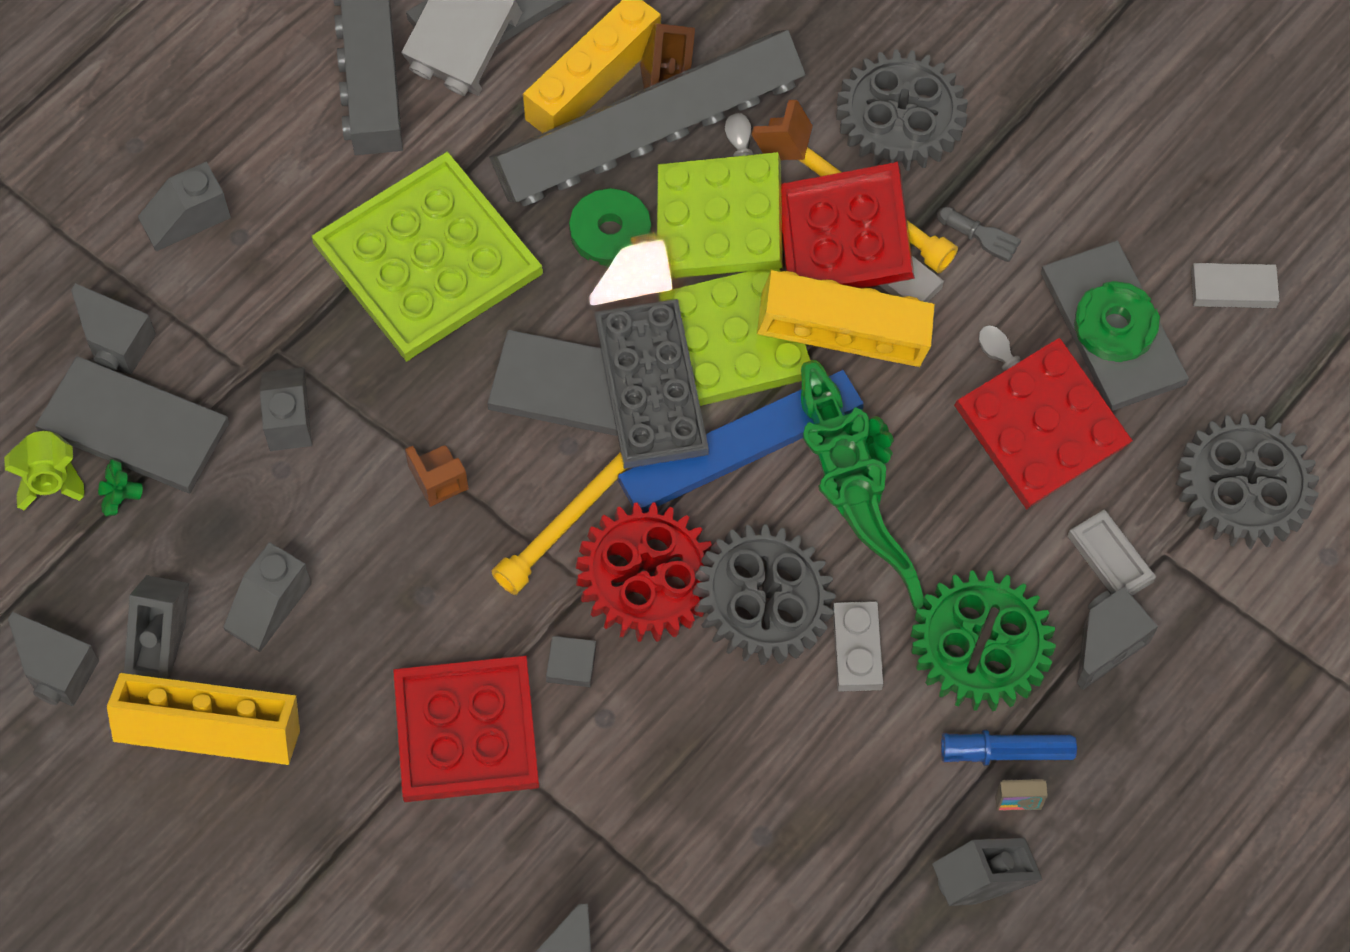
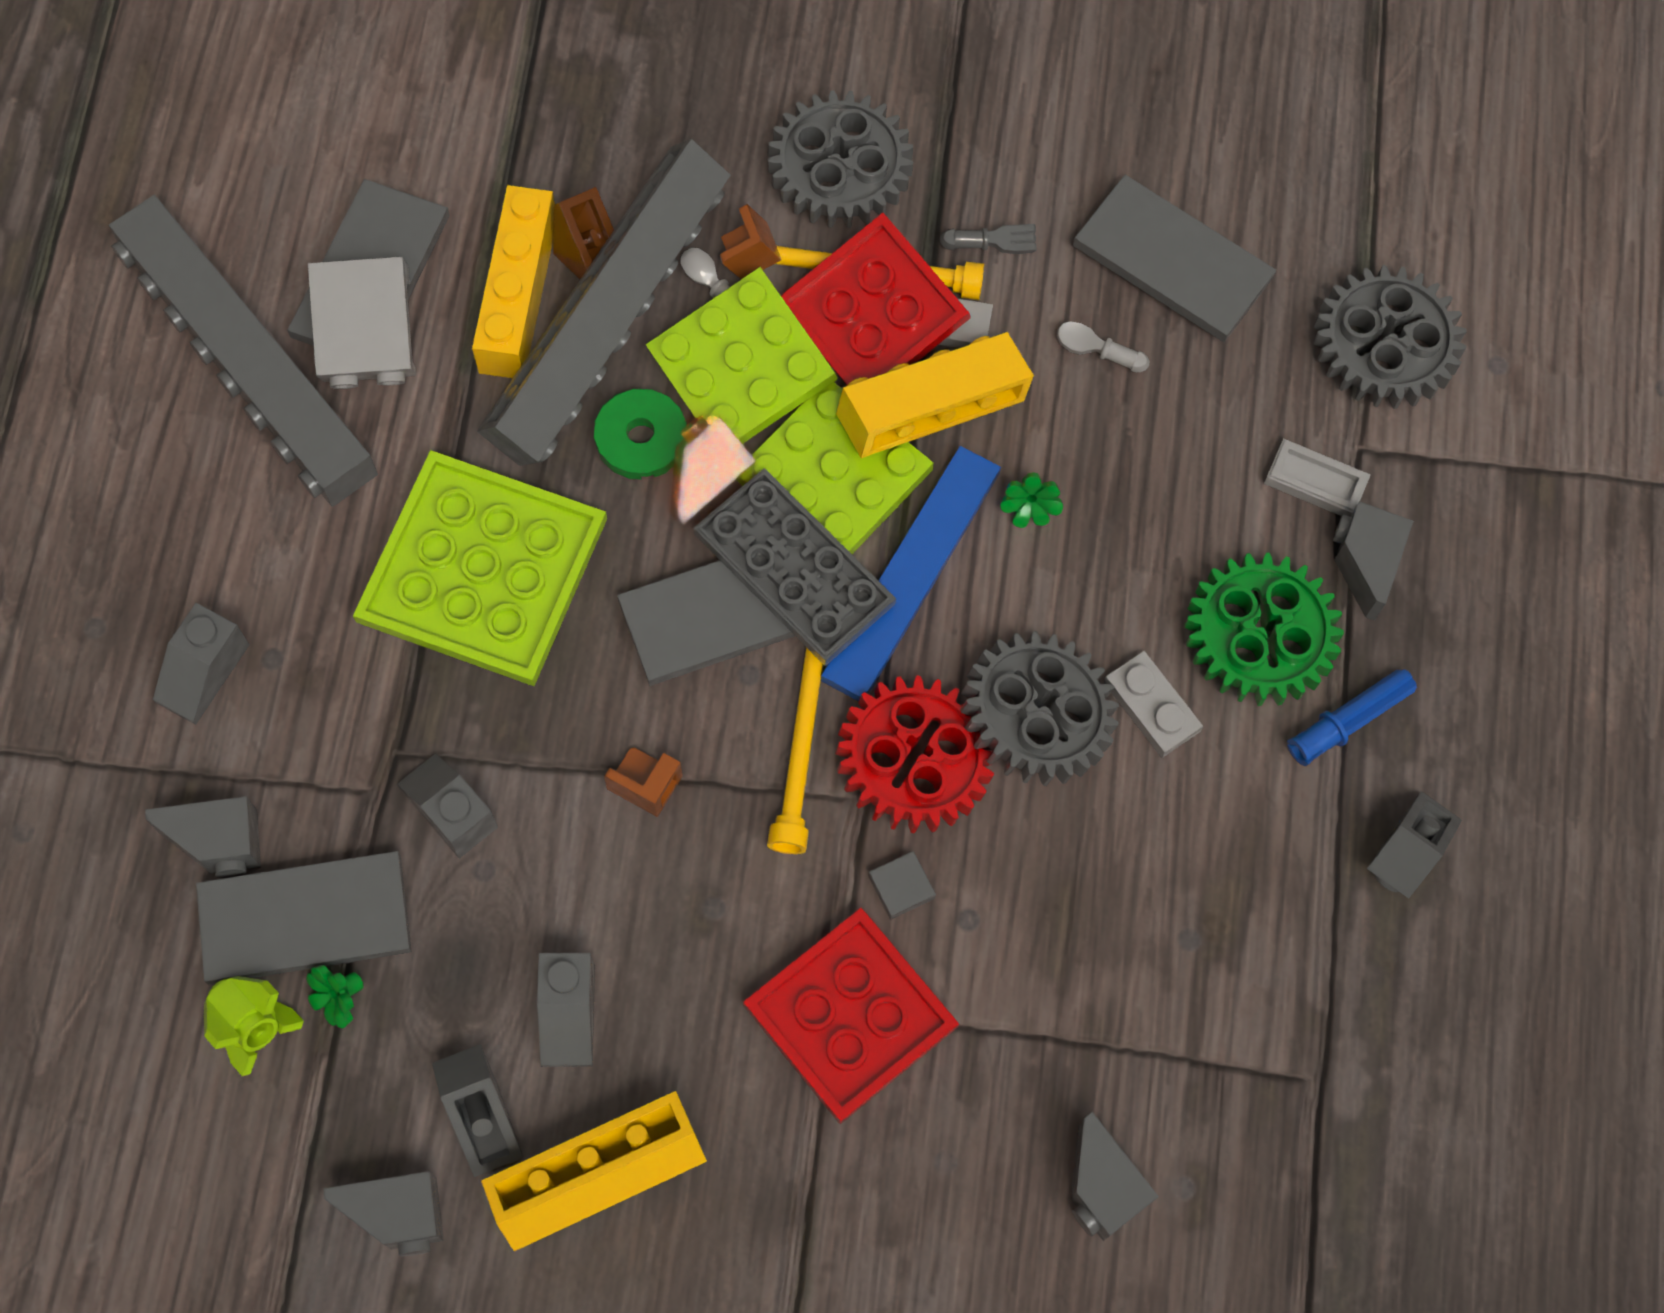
camera: 35 degrees left, 5 degrees up
(851, 477) = (1042, 544): green animal -> none
(1021, 795) = (1396, 753): dark tan tile -> none
(1043, 423) = (1175, 389): red plate -> none
(1112, 342) = (1173, 275): green tile -> none
(1235, 285) = (1251, 157): light grey tile -> none

